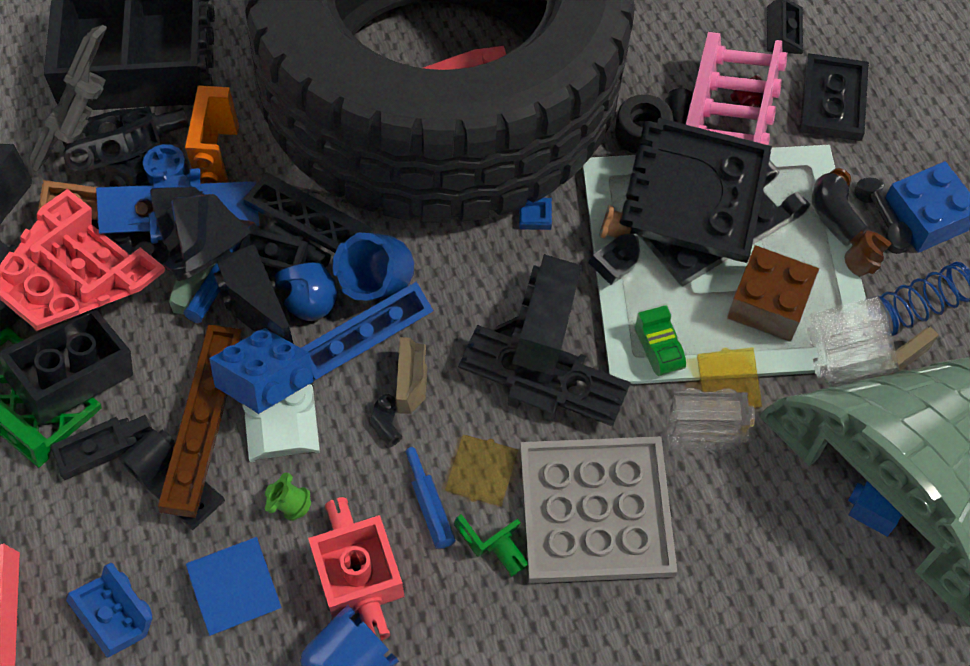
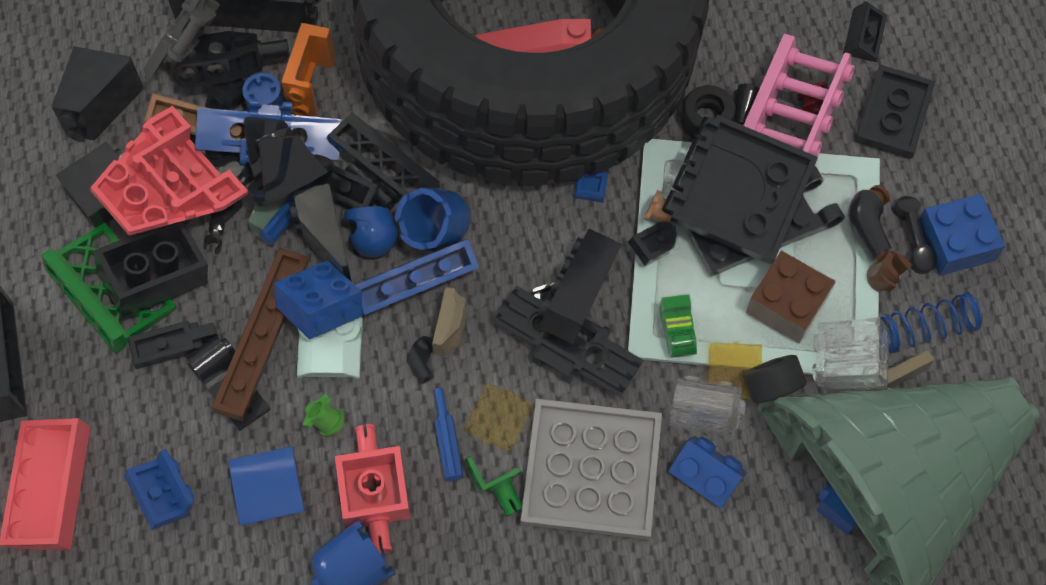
camera: 10 degrees right, 5 degrees up
(135, 309) = (217, 224): none -> black arm
(723, 491) = (708, 470): none -> blue bracket
(776, 380) = (775, 379): none -> black tyre

